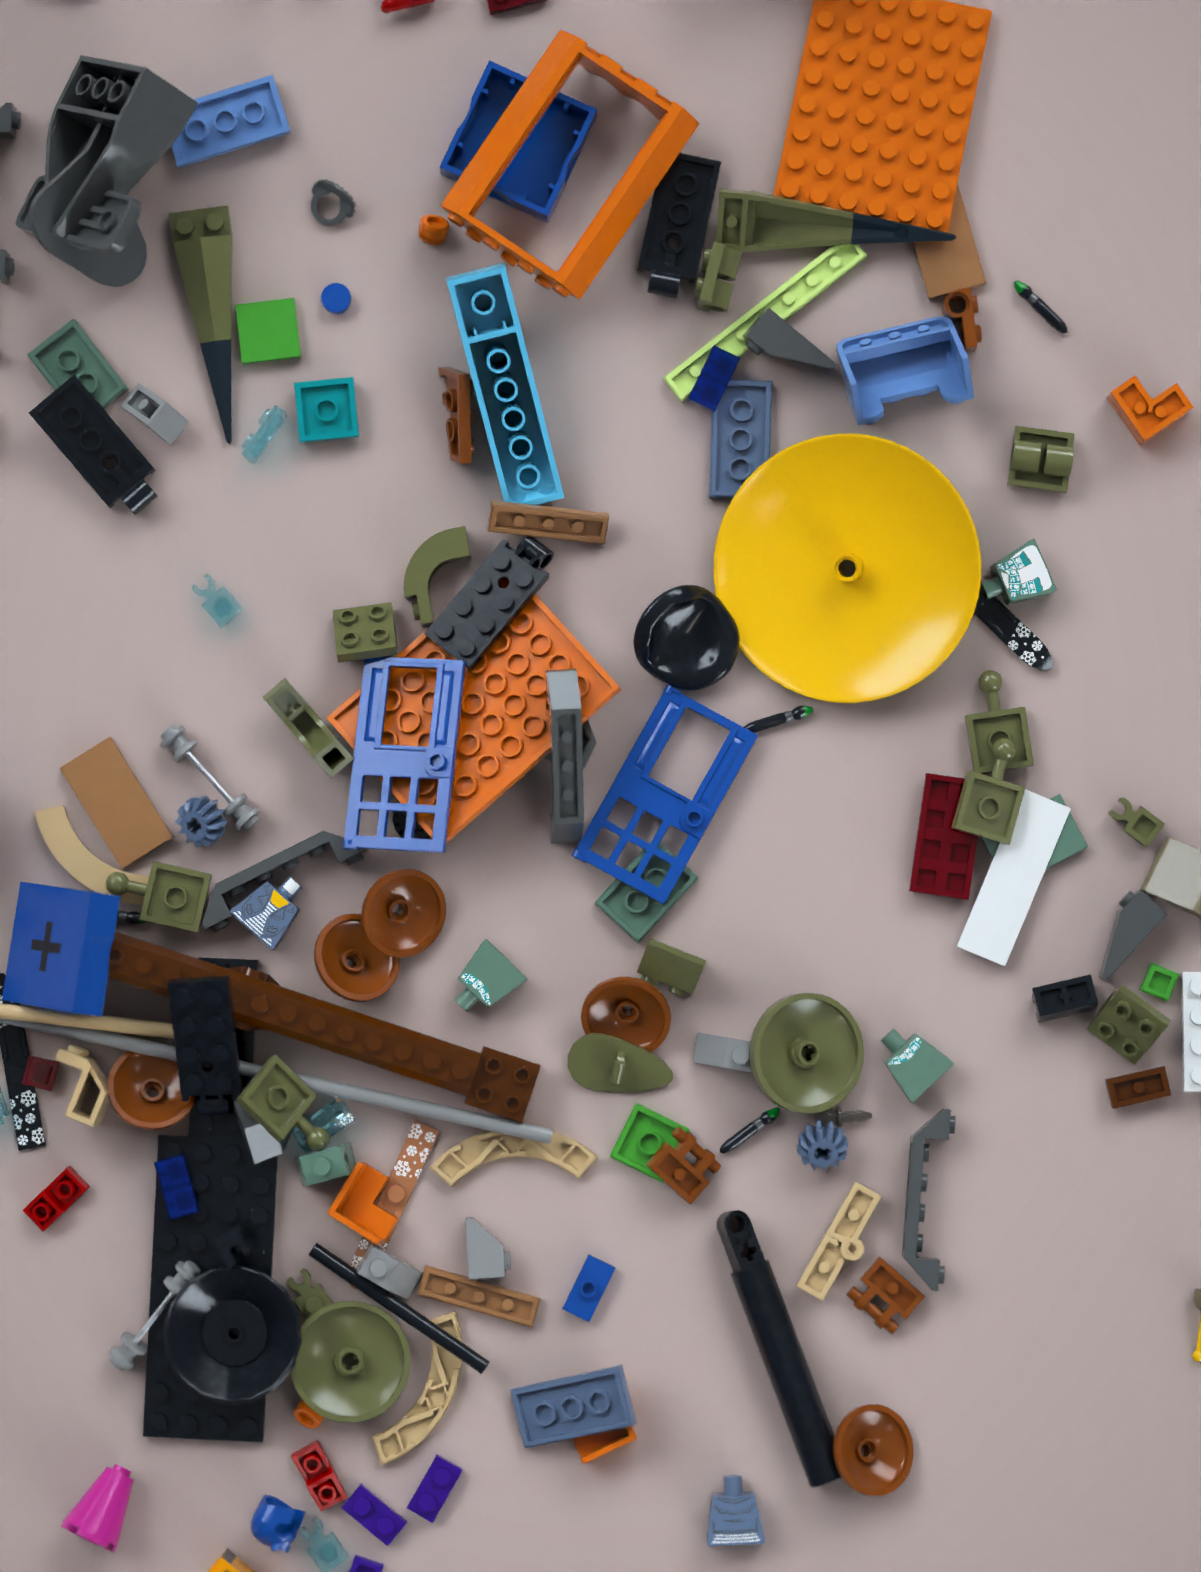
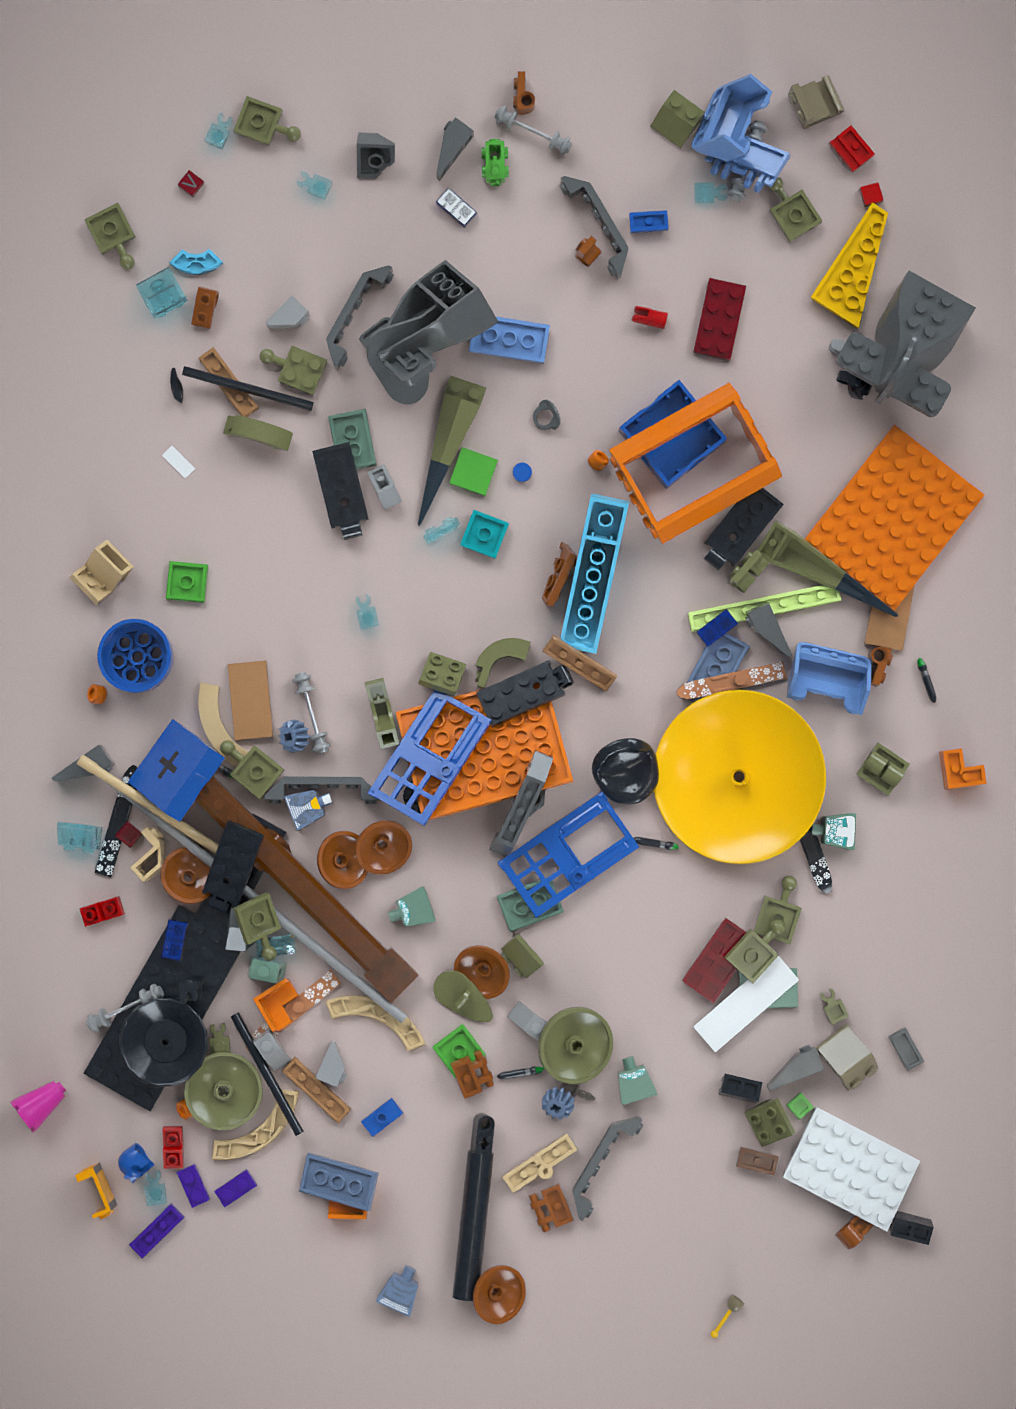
camera: 20 degrees right, 0 degrees up
(772, 441) = (732, 681): none -> nougat piece

